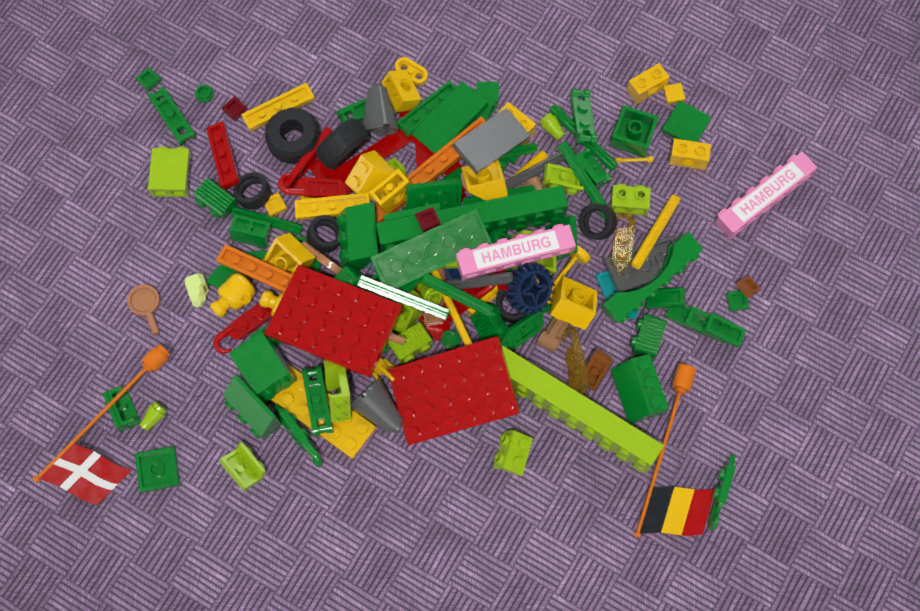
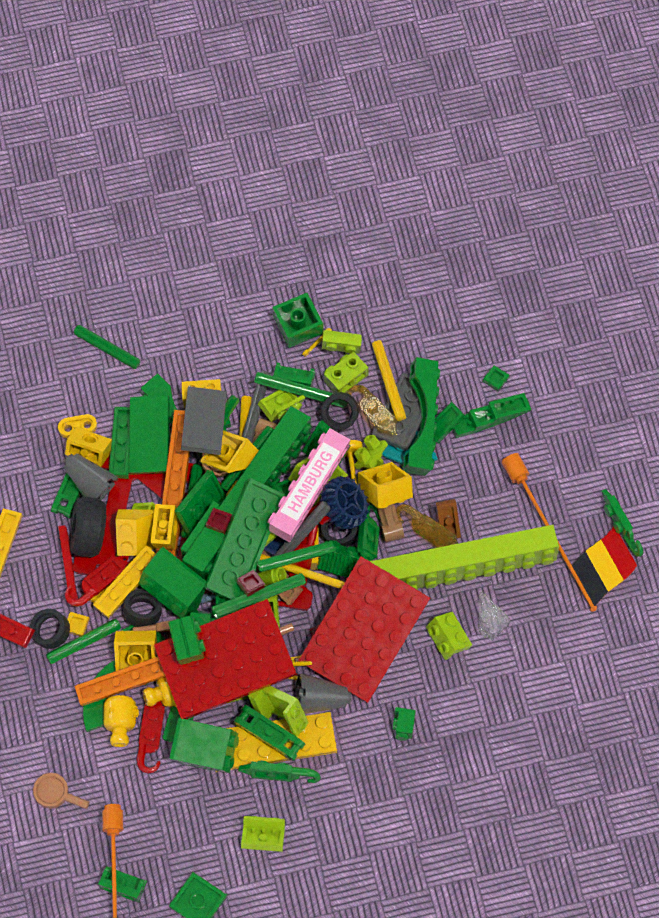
camera: 45 degrees left, 5 degrees down
(153, 415) = (153, 865): lime cone -> none
(197, 289) = (85, 742): yellowish green rock -> none
(215, 199) = (26, 662): green brick -> none
(250, 231) = (81, 660): green hinge -> none
(250, 409) = (224, 786): green slope -> none
(284, 122) = (31, 541): black tyre -> none
(317, 281) = (186, 639): none -> green brick
(404, 283) = (250, 583): none -> dark red tile
(416, 341) = (300, 620): lime brick -> none
(416, 485) = (404, 723): none -> green brick
(450, 339) = (318, 598): green plate -> none
(486, 35) = (107, 346): none -> green axle
(552, 126) = (229, 371): lime cone -> none
(554, 469) = (490, 618): none -> clear slope
(583, 116) = (247, 343): green plate -> none
(588, 274) = (371, 455): none -> lime hips
(596, 149) = (261, 359): green axle -> none
(639, 389) = (492, 504): green slope -> none
(647, 83) = (270, 275): yellow brick -> none
(649, 336) = (461, 461): green brick -> none
(650, 174) = (341, 341): none -> lime bracket
(673, 93) = (296, 266): yellow tile -> none
(686, 123) = (329, 281): green tile -> none
(690, 154) = (355, 301): yellow brick -> none
(748, 286) = (494, 360): dark orange tile -> none
(765, 195) = (440, 282): bright pink brick -> none

